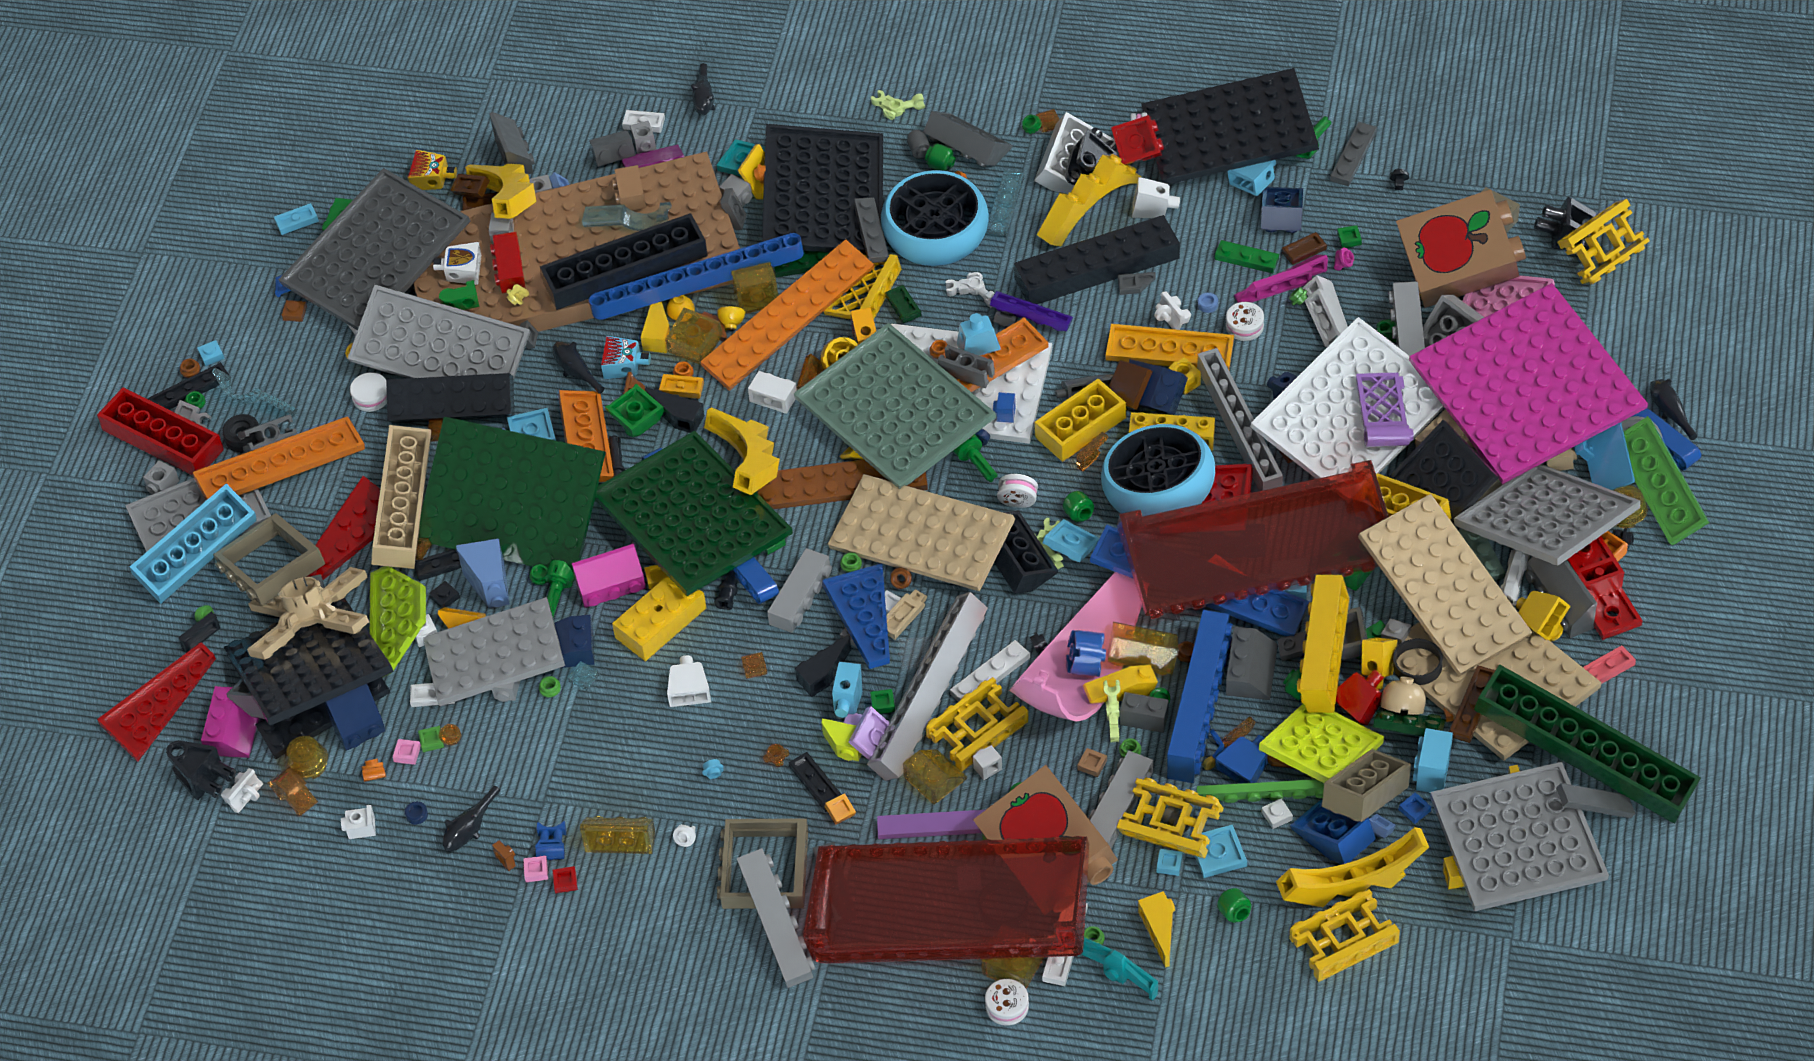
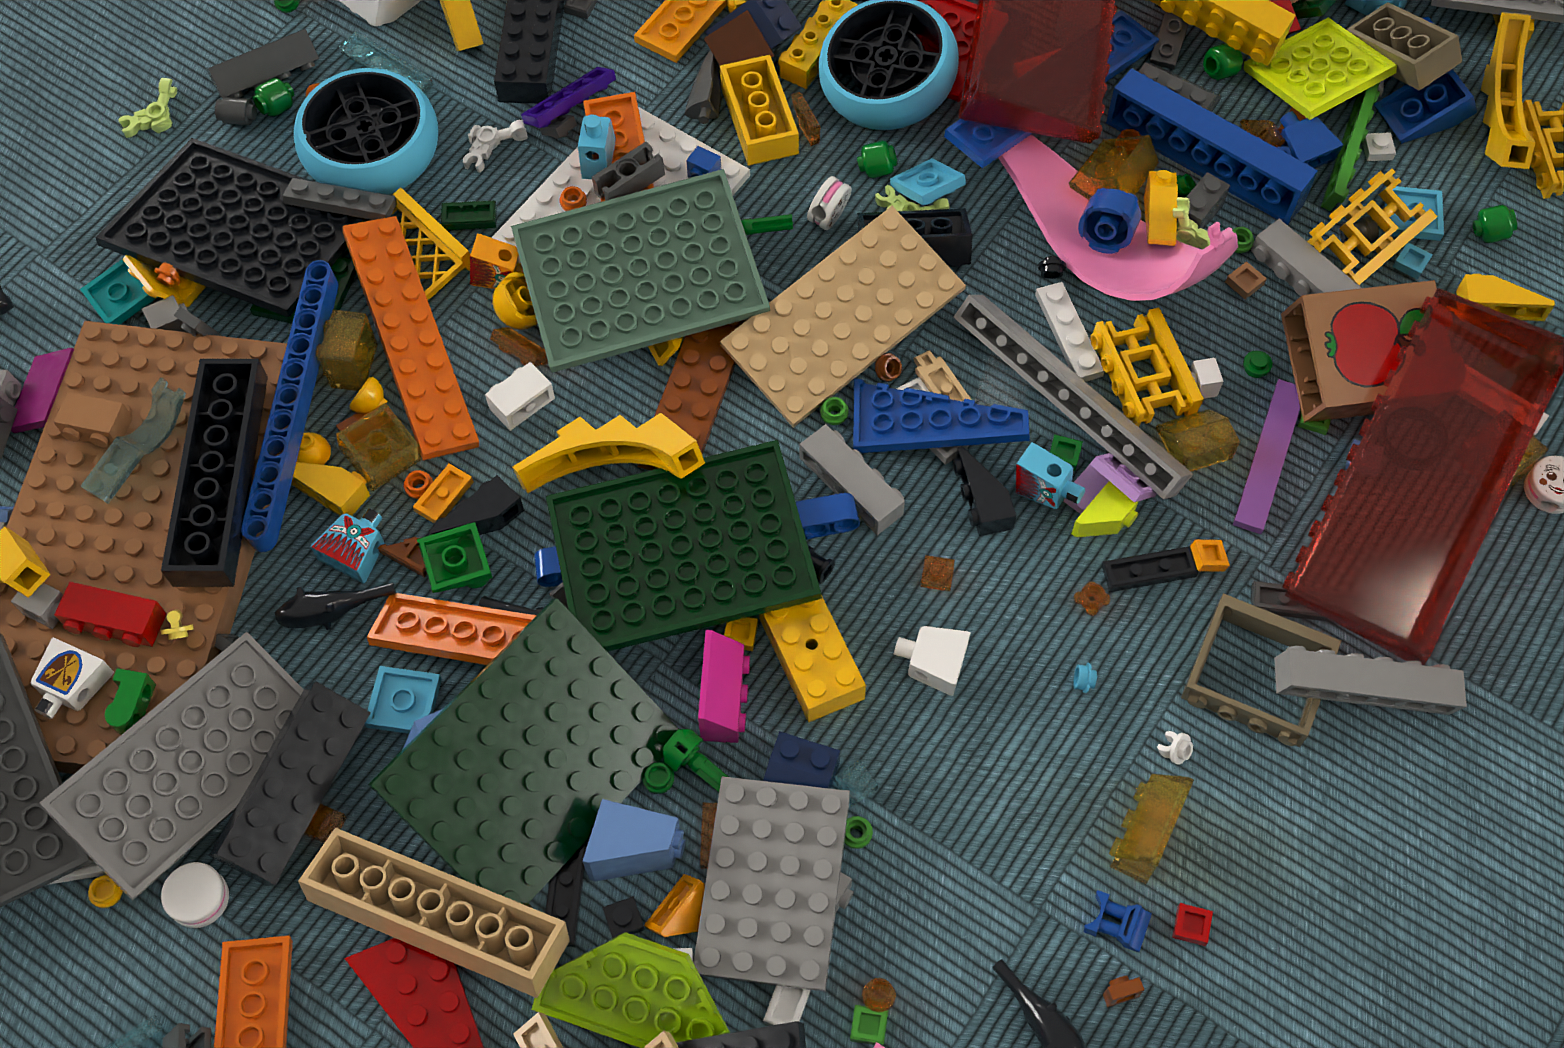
camera: 70 degrees left, 10 degrees up
(535, 869) = (1160, 957): bright pink plate -> none

